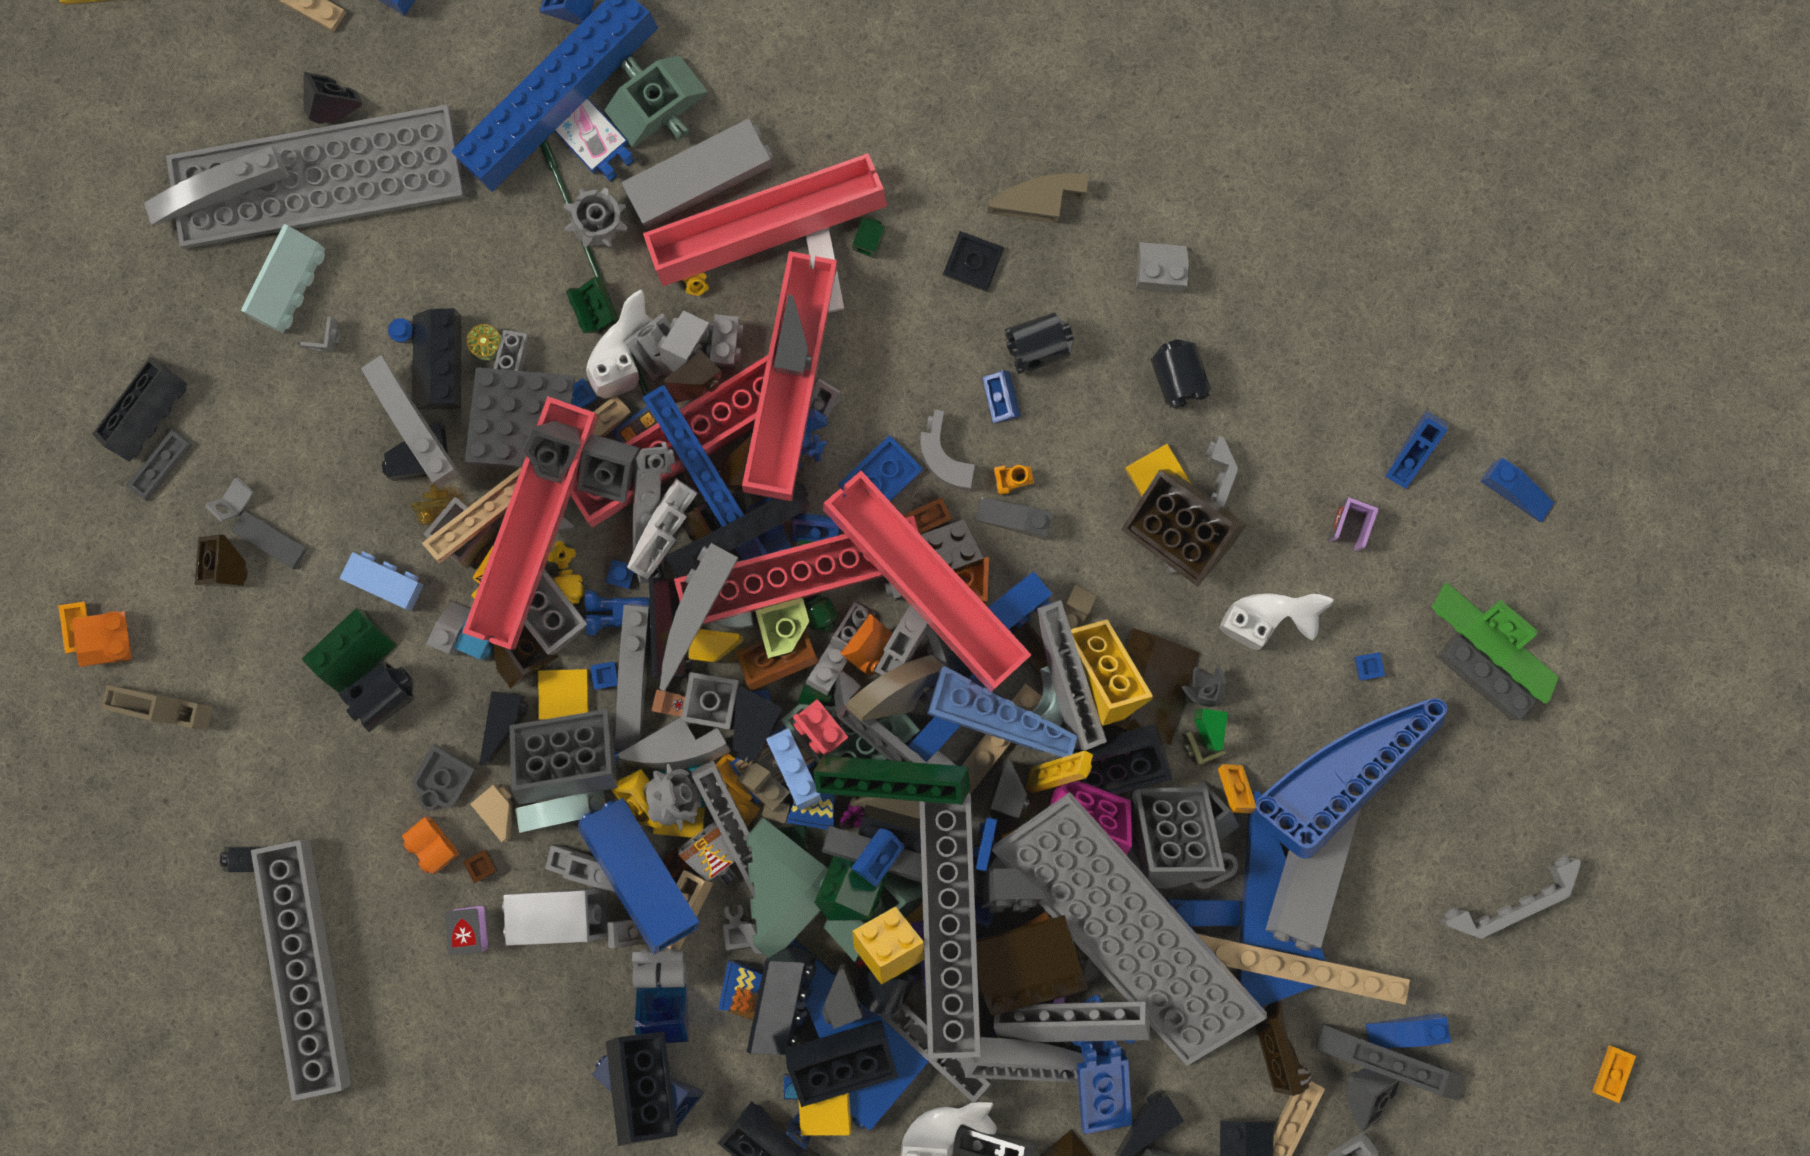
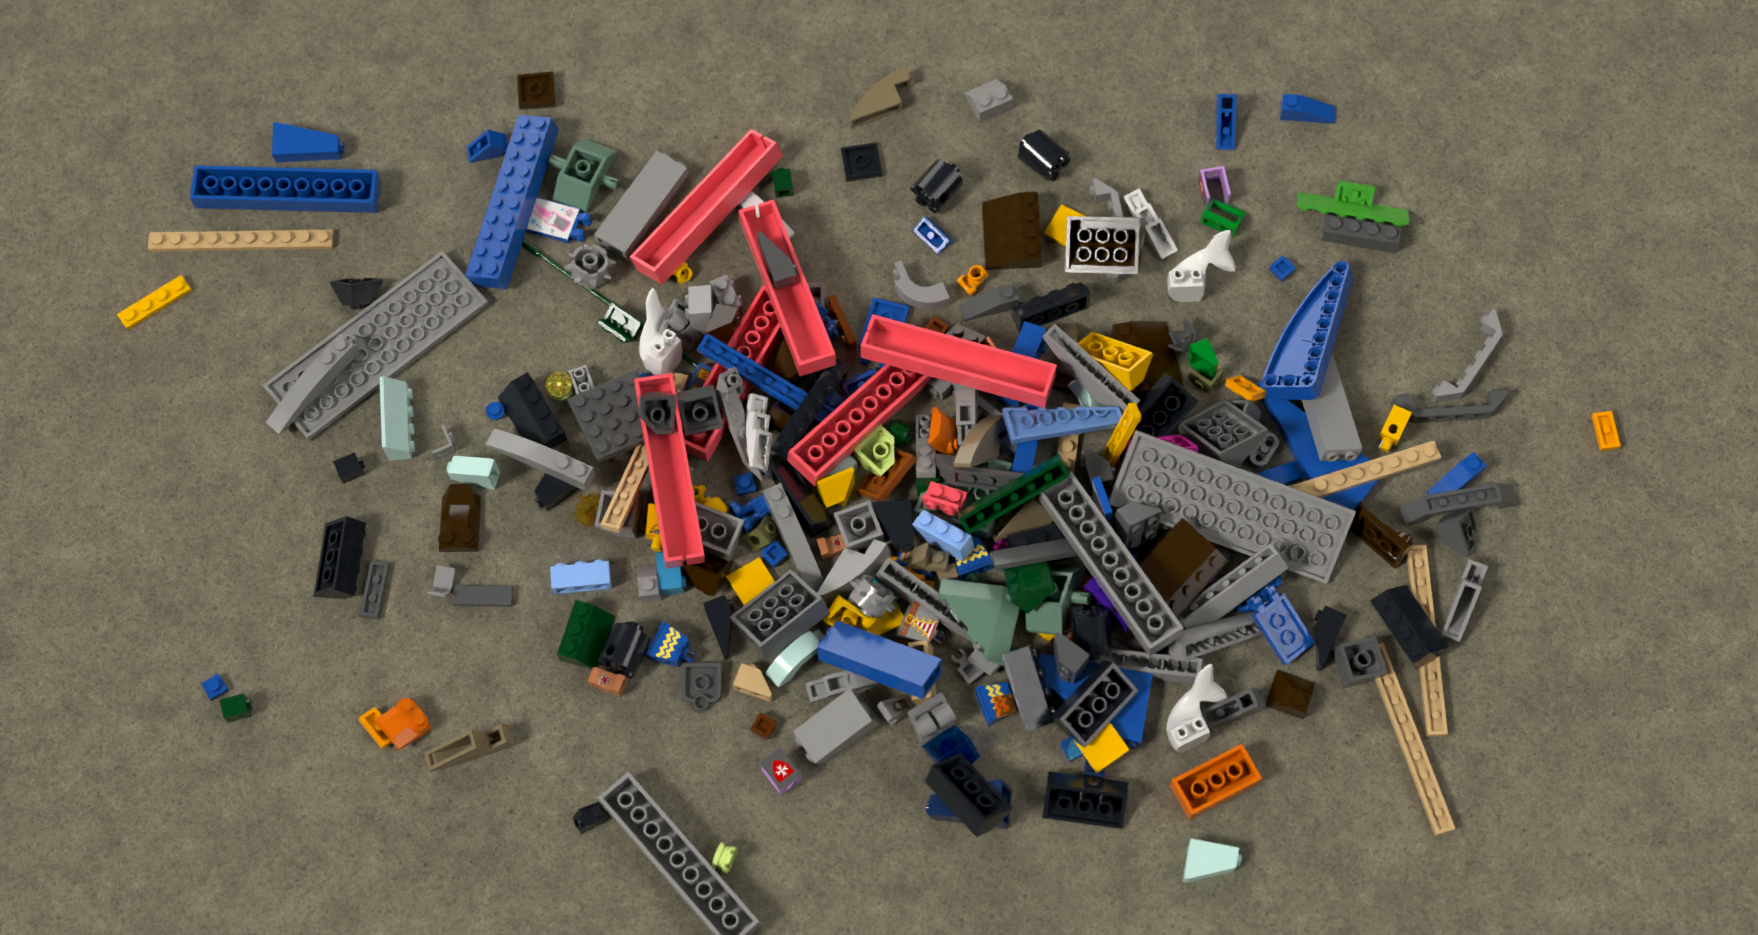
camera: 25 degrees left, 15 degrees down
(206, 307) = (349, 467): none -> black brick
(219, 563) = (457, 628): dark brown slope -> none
(292, 437) = (460, 519): none -> dark brown slope
(334, 391) = (474, 471): none -> light aqua slope
(337, 712) = (607, 681): none -> nougat leg
(352, 991) = (724, 858): none -> yellowish green wheel
(429, 845) = (720, 731): orange brick -> none
(432, 717) = (670, 647): none -> blue torso
(605, 647) = (764, 532): none -> olive bracket
(695, 605) = (814, 458): light grey slope -> none
(834, 445) = (841, 323): none -> dark orange plate
(878, 856) = (1035, 551): blue slope -> none
(888, 945) = (1078, 597): yellow brick -> none
(1079, 562) = (1052, 306): none -> black slope
(1090, 445) = (1012, 232): none -> dark brown slope
(1254, 536) = (1154, 228): none -> white slope
(1331, 570) = (1220, 223): none -> green tile
(1384, 931) = (1395, 422): none -> yellow torso
(1508, 964) = (1460, 412): none -> dark grey slope

